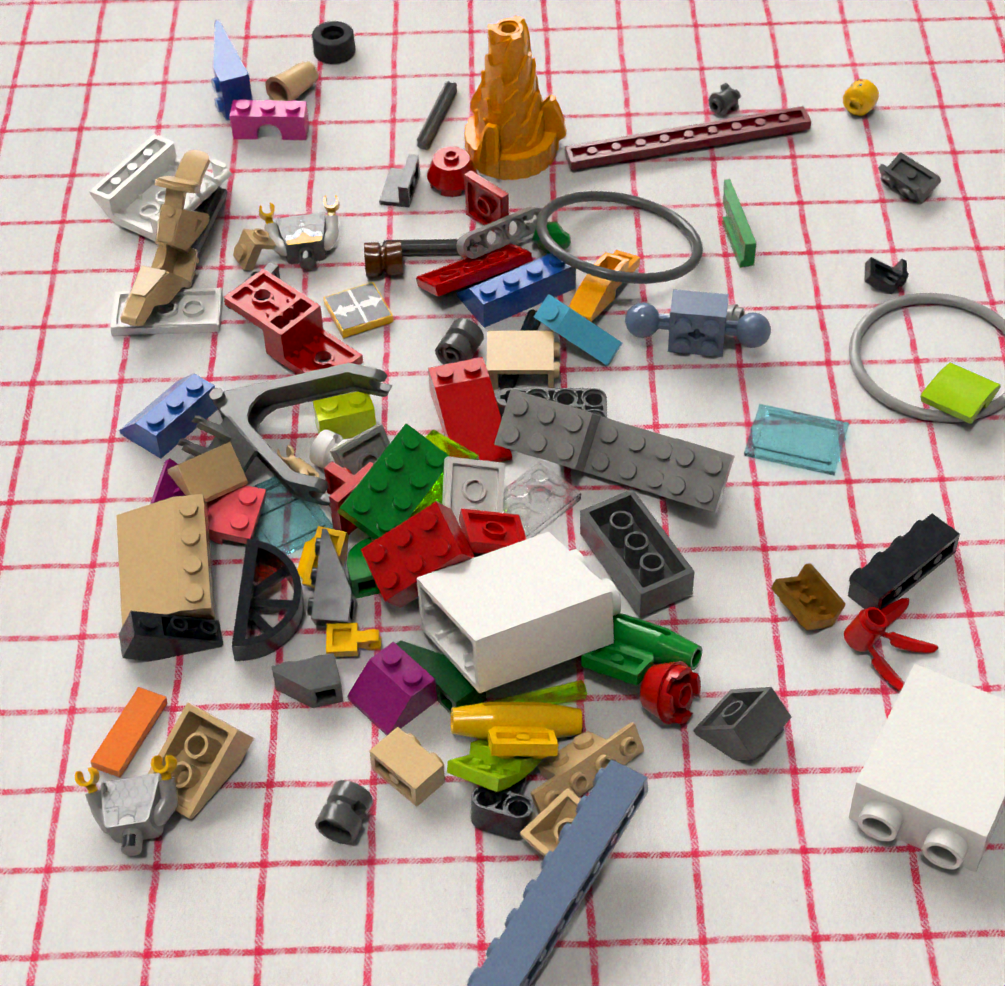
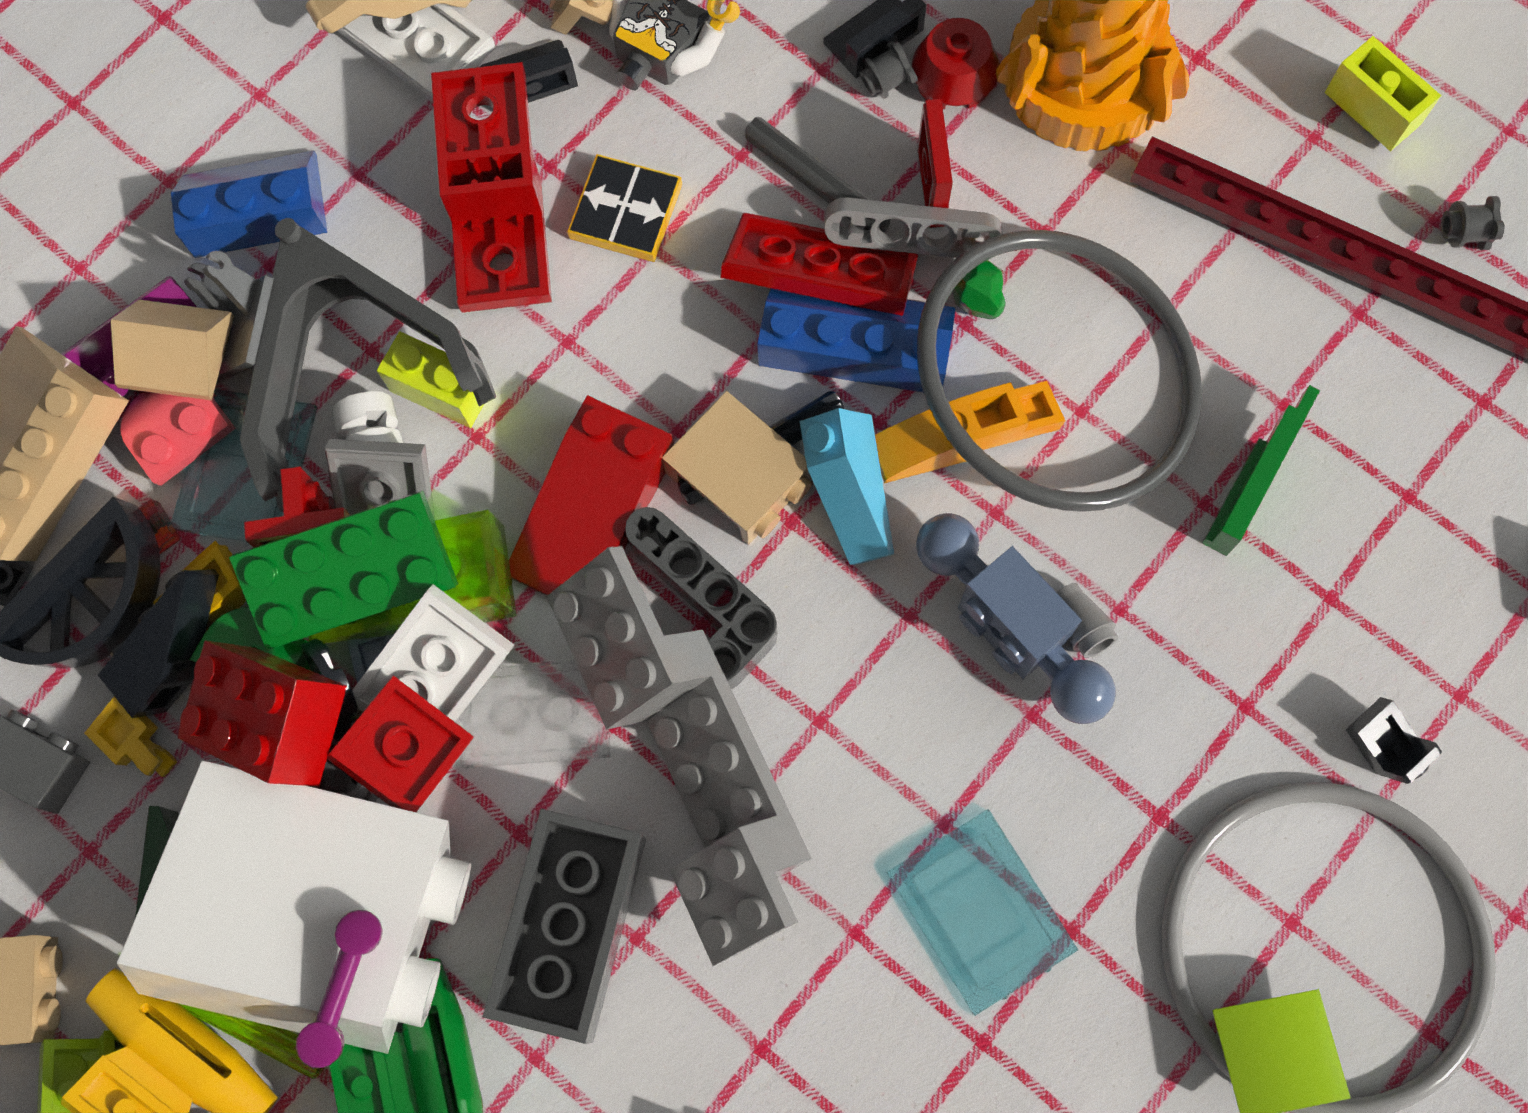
camera: 45 degrees right, 25 degrees up
(297, 464) = (311, 442): tan arm -> none
(383, 258) = (720, 149): reddish brown wheel -> none
(393, 689) = (99, 860): magenta slope -> none
(424, 190) = (887, 70): none -> dark grey brick
(459, 342) = (682, 378): dark grey wheel -> none
(593, 607) = (323, 1040): none -> magenta bar
(641, 78) = (1382, 93): none -> neon yellow brick

